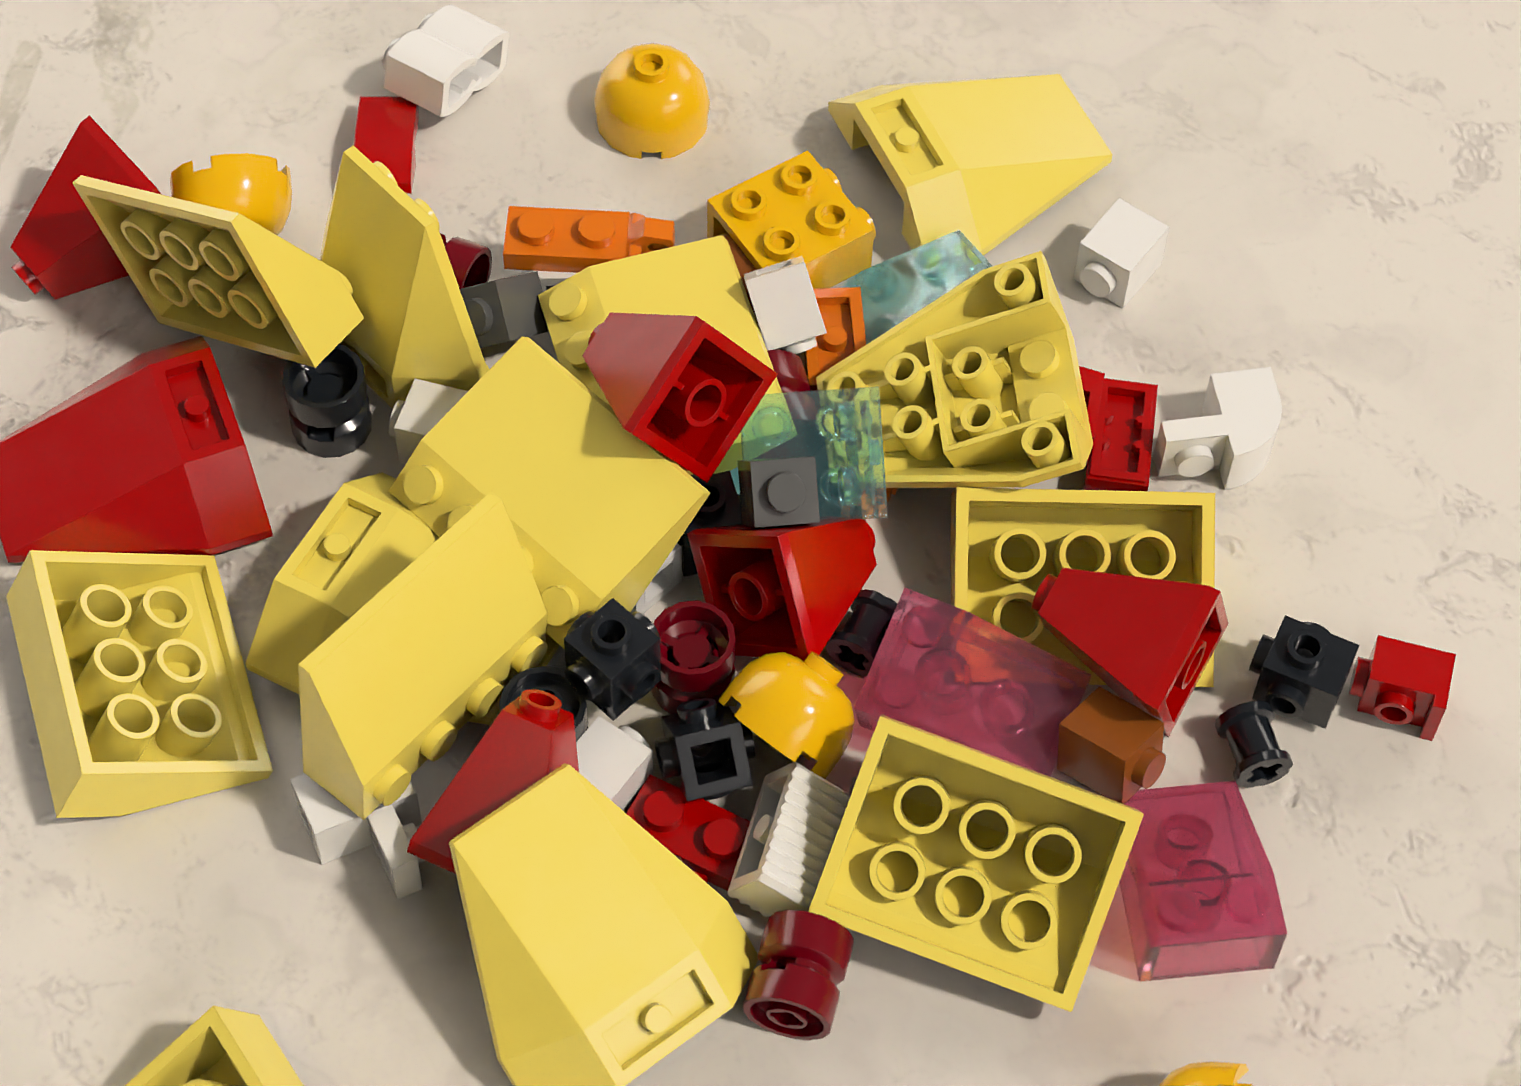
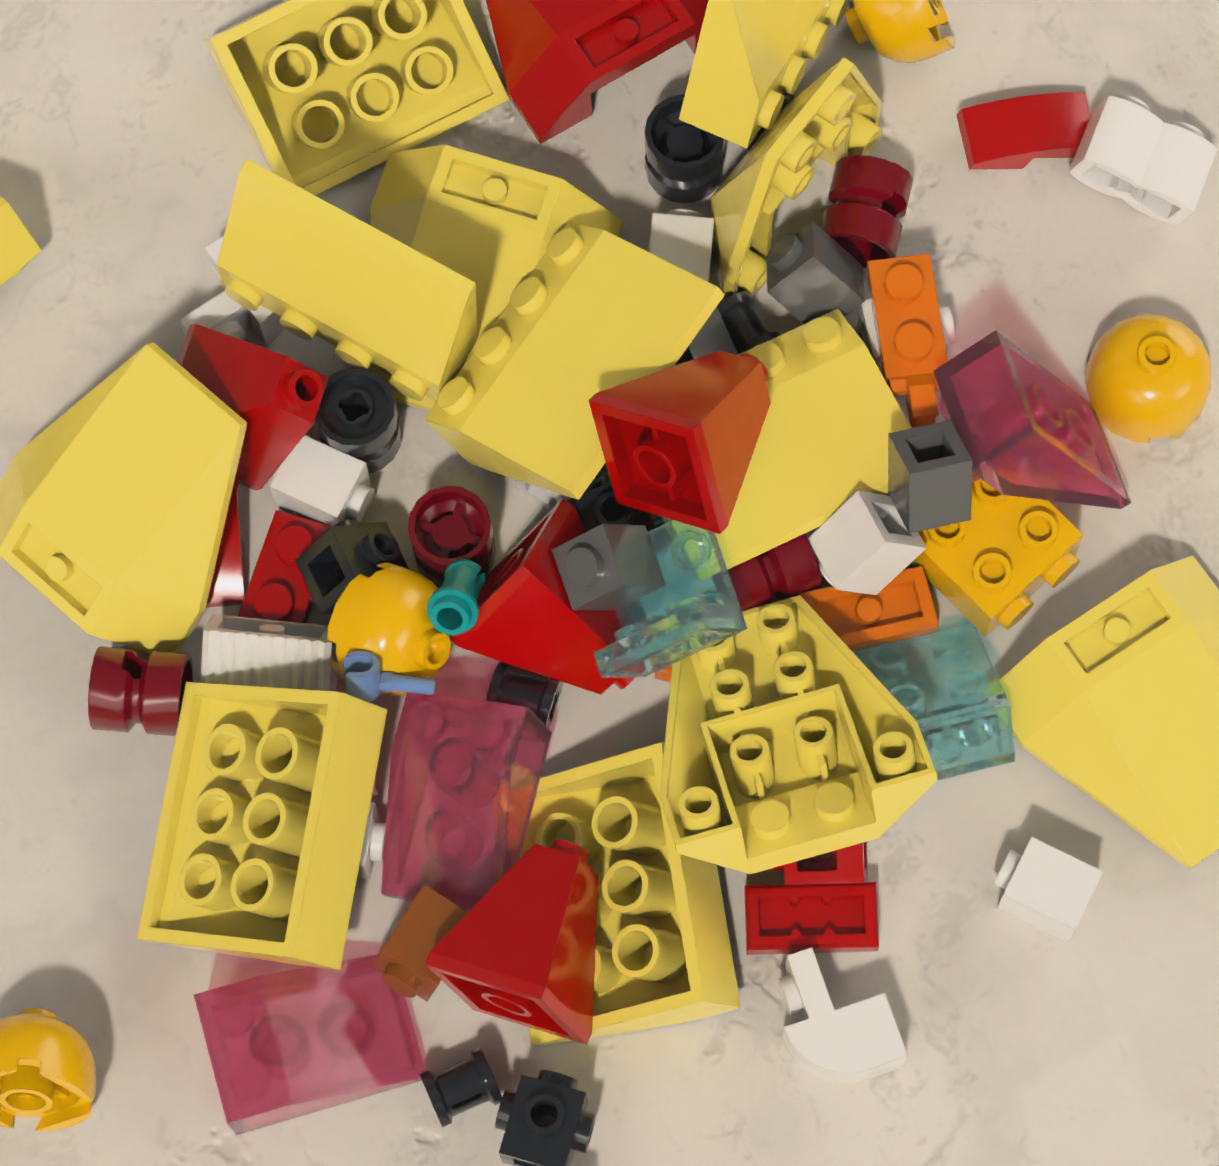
camera: 85 degrees right, 15 degrees up
(612, 657) = (406, 472): black brick -> none
(699, 161) = (1027, 427): none -> clear pink slope
(746, 220) = (929, 476): none -> dark grey brick
(789, 631) = (454, 606): none -> teal pin
(849, 712) = (366, 681): none -> medium blue hand

